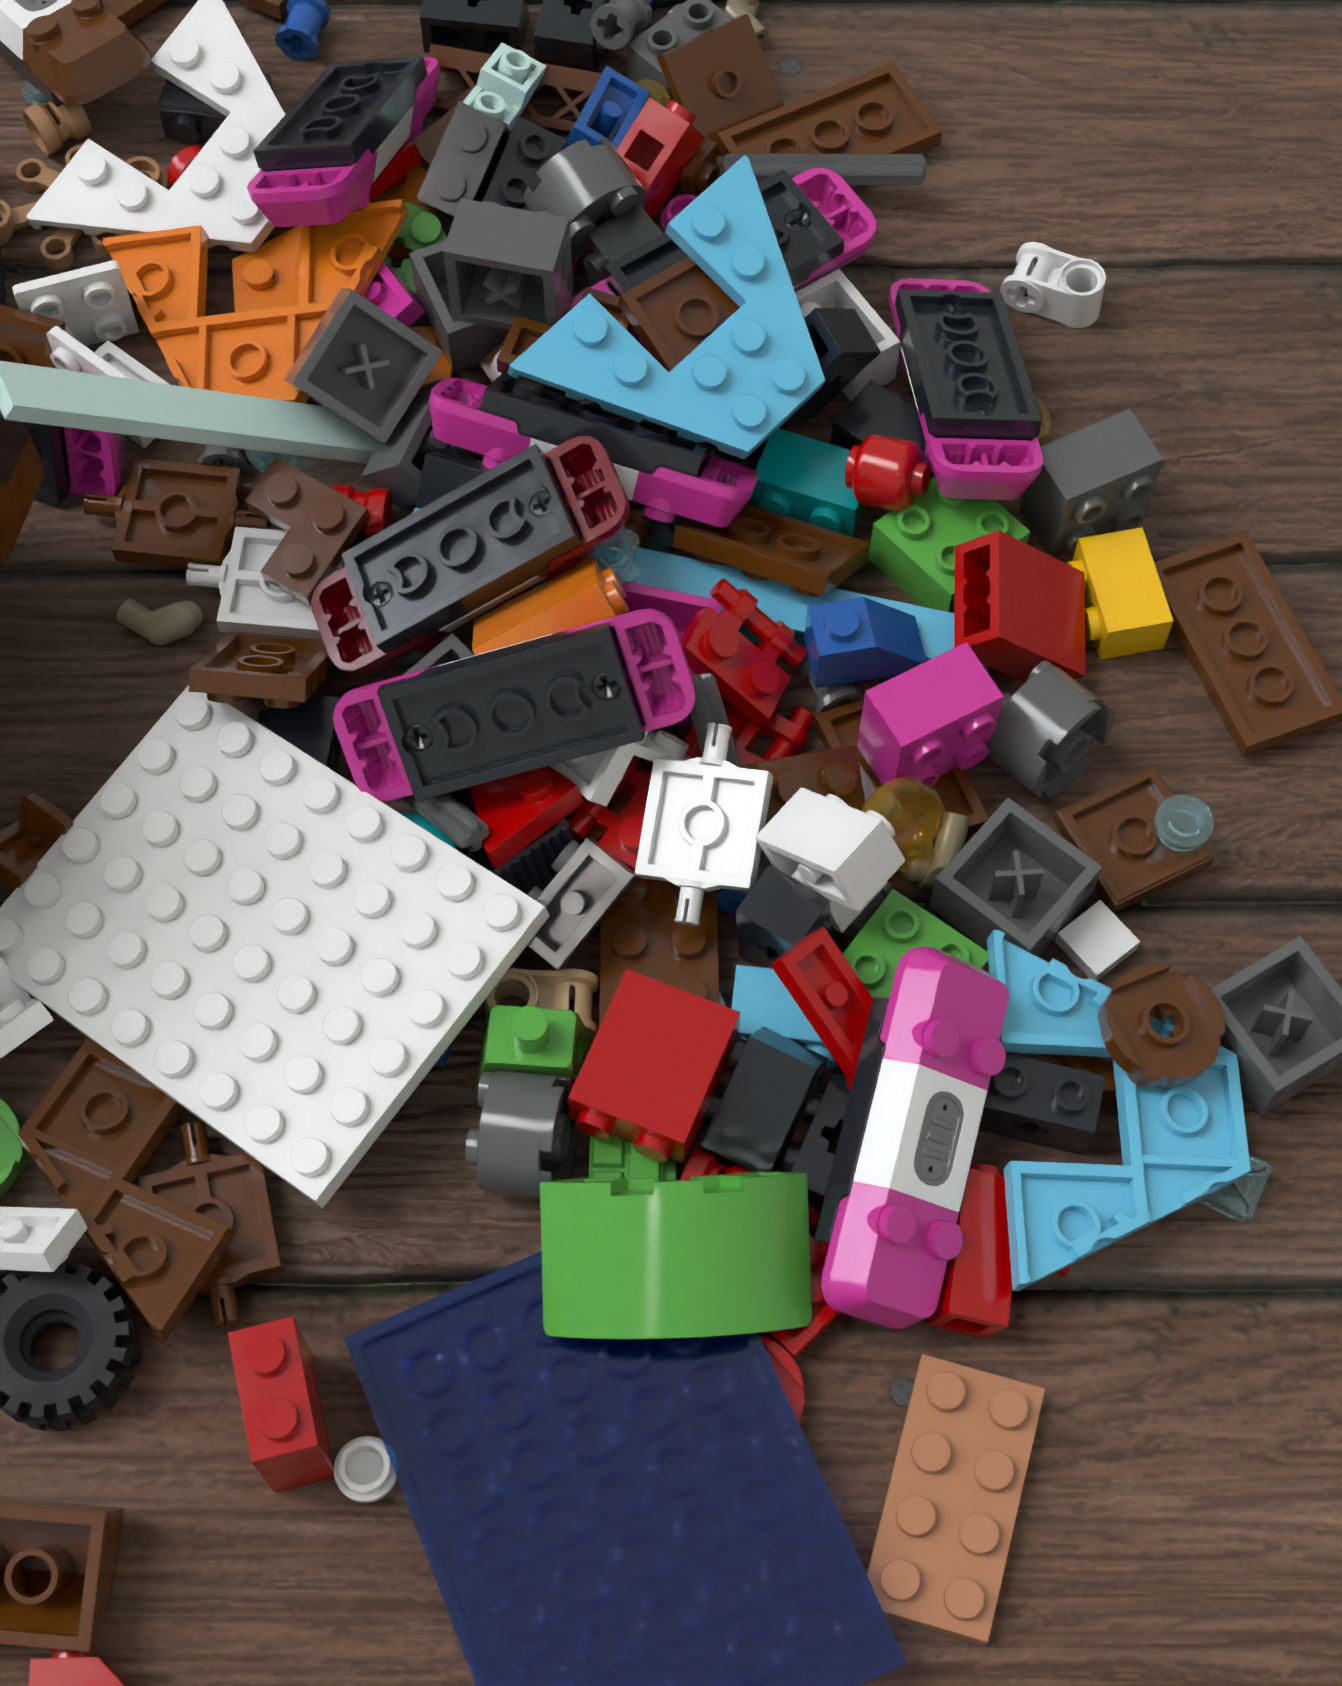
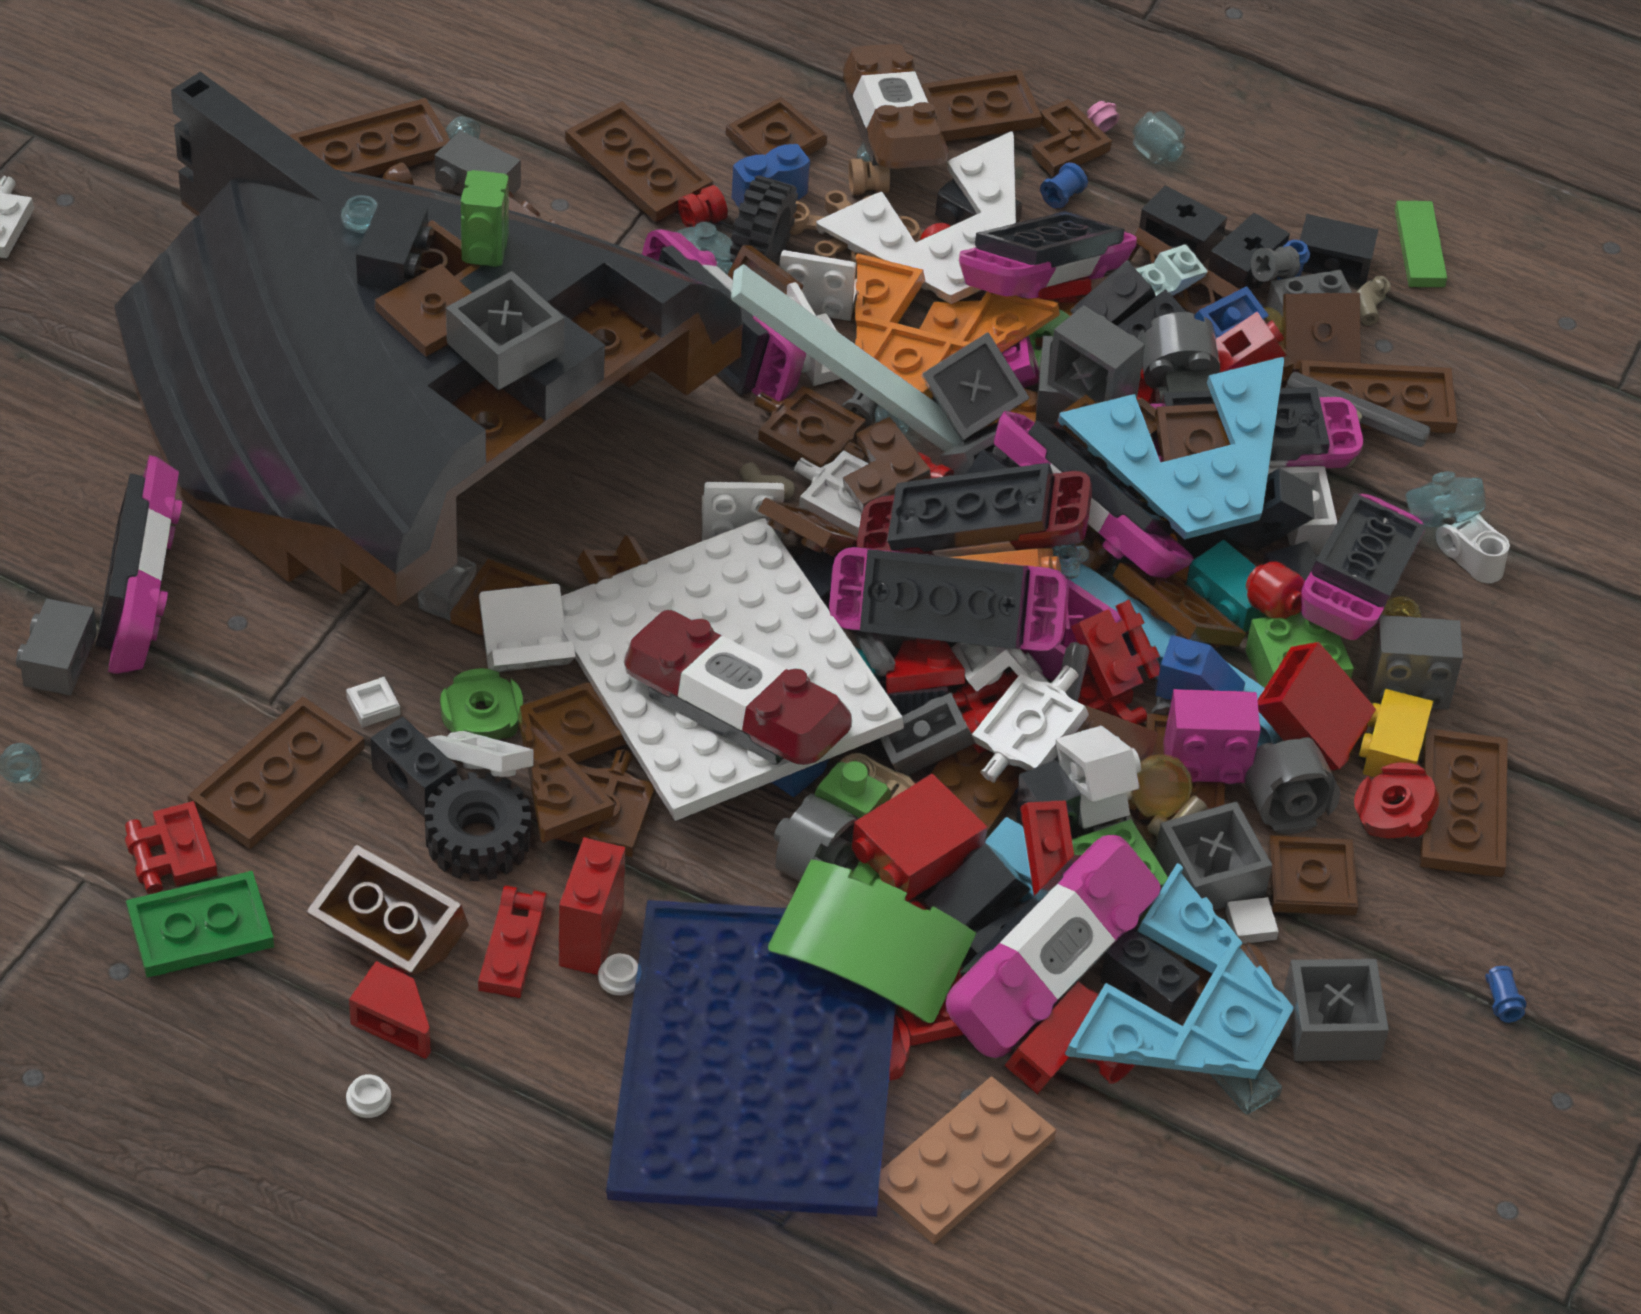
camera: 25 degrees right, 15 degrees down
(148, 684) = (734, 505): none -> white bracket
(195, 1498) = (512, 943): none -> red plate
(311, 986) = (736, 690): none -> dark red piece
(992, 240) = (1447, 498): none -> clear light blue plate
(1143, 1052) = (1238, 978): reddish brown plate -> none
(1183, 823) = (1346, 874): clear light blue plate -> none
(1203, 702) = (1403, 819): none -> red plate

